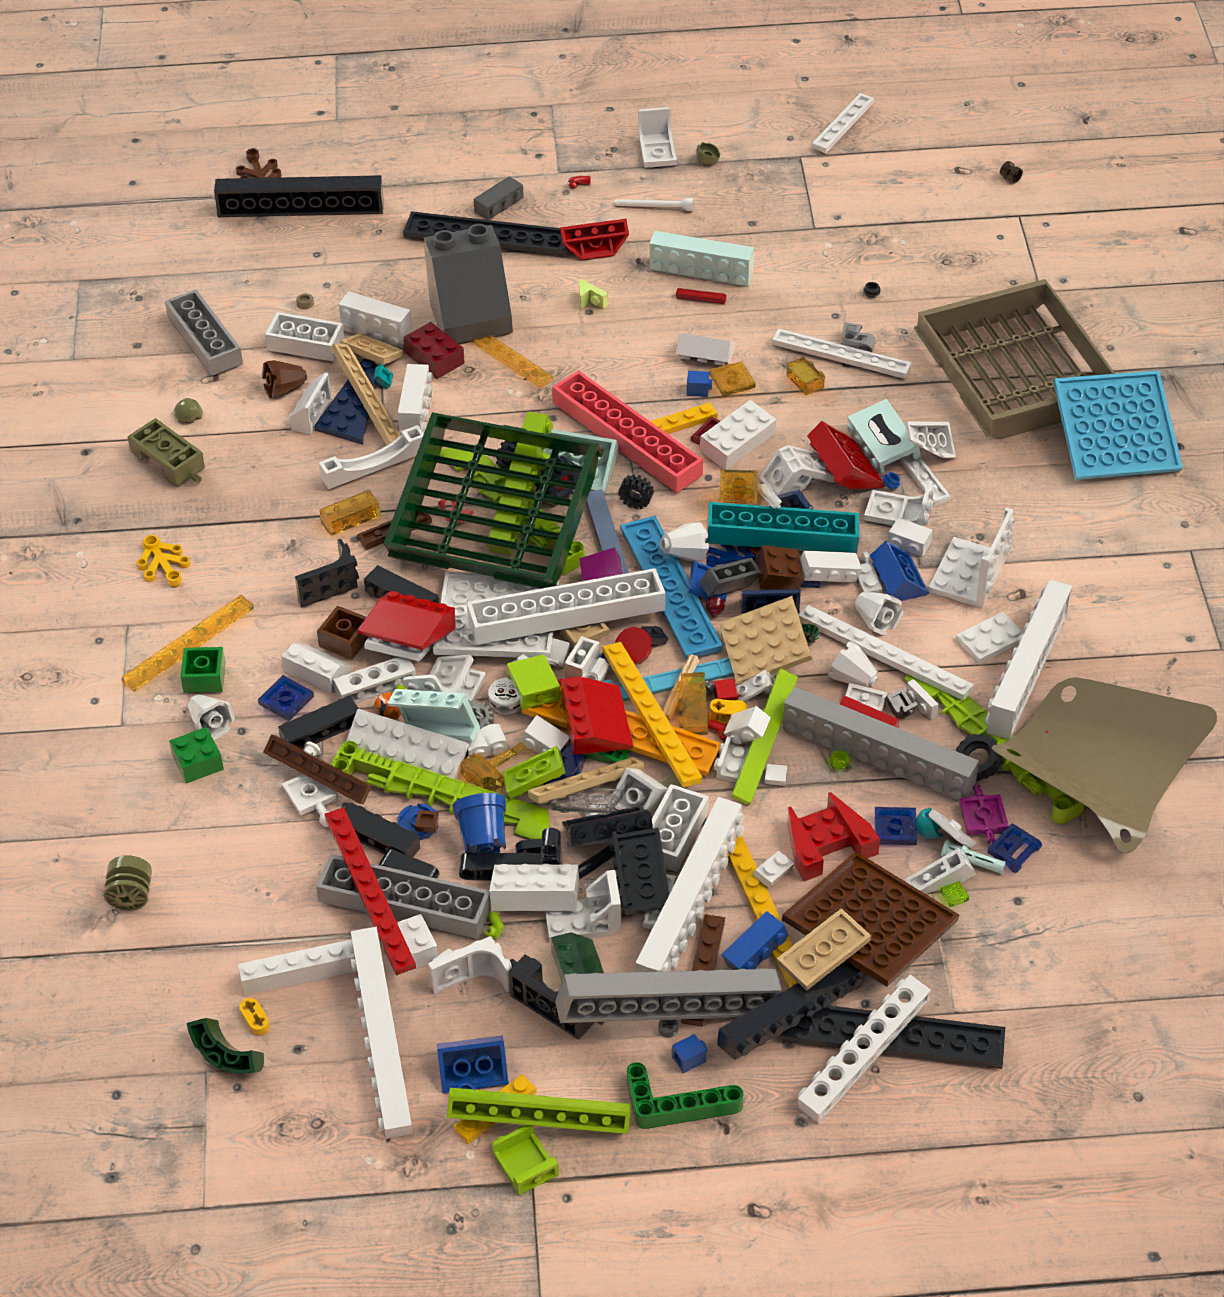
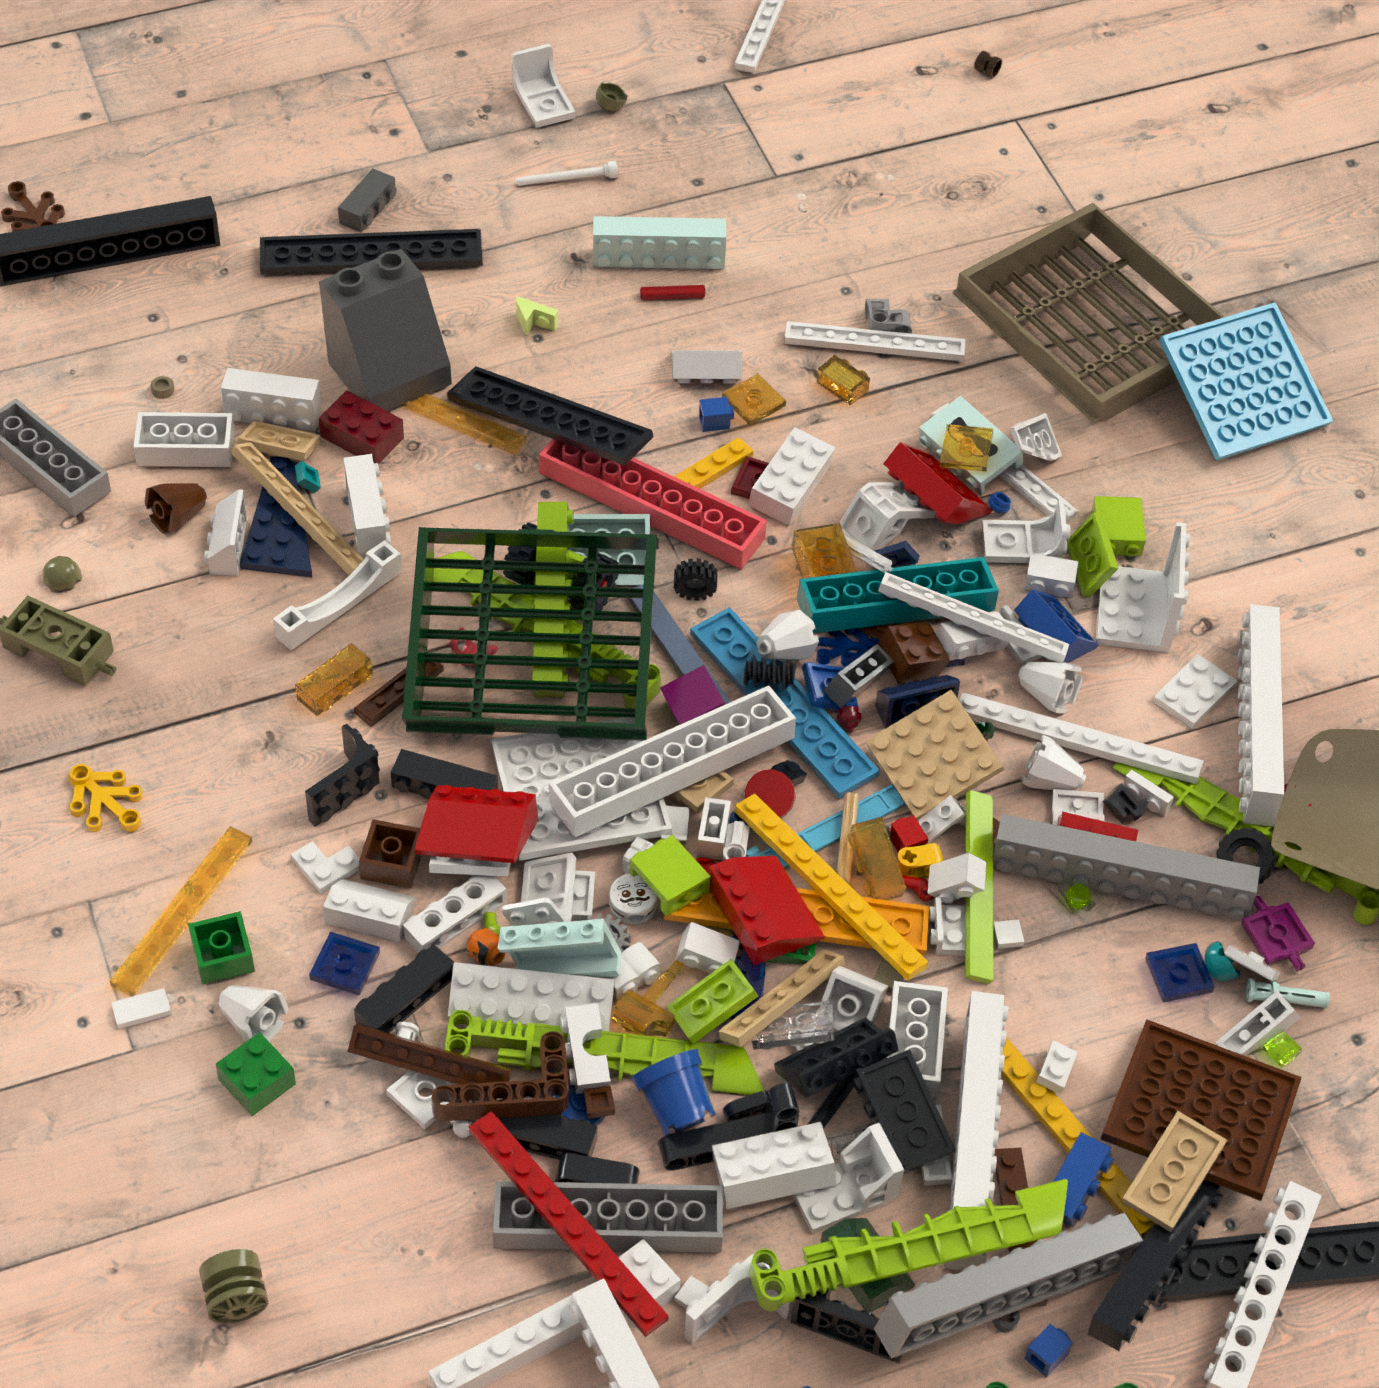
camera: 20 degrees left, 5 degrees up
(136, 699) = (141, 1008): none -> white tile
(292, 633) = (324, 871): none -> white plate
(363, 803) = (511, 1091): none -> reddish brown beam
(430, 767) = (581, 1025): none -> white arch
(496, 928) = (739, 1231): lime arm -> none
(570, 361) = (550, 415): none -> black plate
(573, 181) = (460, 157): red arm -> none
(595, 239) = (514, 237): red wedge -> none
(634, 954) = (944, 1239): none -> lime piece
(662, 563) = (769, 673): none -> black piece
(826, 833) = (1101, 1001): red wedge -> none
(830, 551) = (975, 618): none -> white plate
(872, 289) = (879, 248): black plate -> none
(876, 435) = (966, 447): none -> clear yellow plate
(945, 527) = (1094, 554): none -> lime plate
(977, 512) = (1123, 523): none -> lime panel
(1009, 843) = (1321, 966): clear blue plate -> none

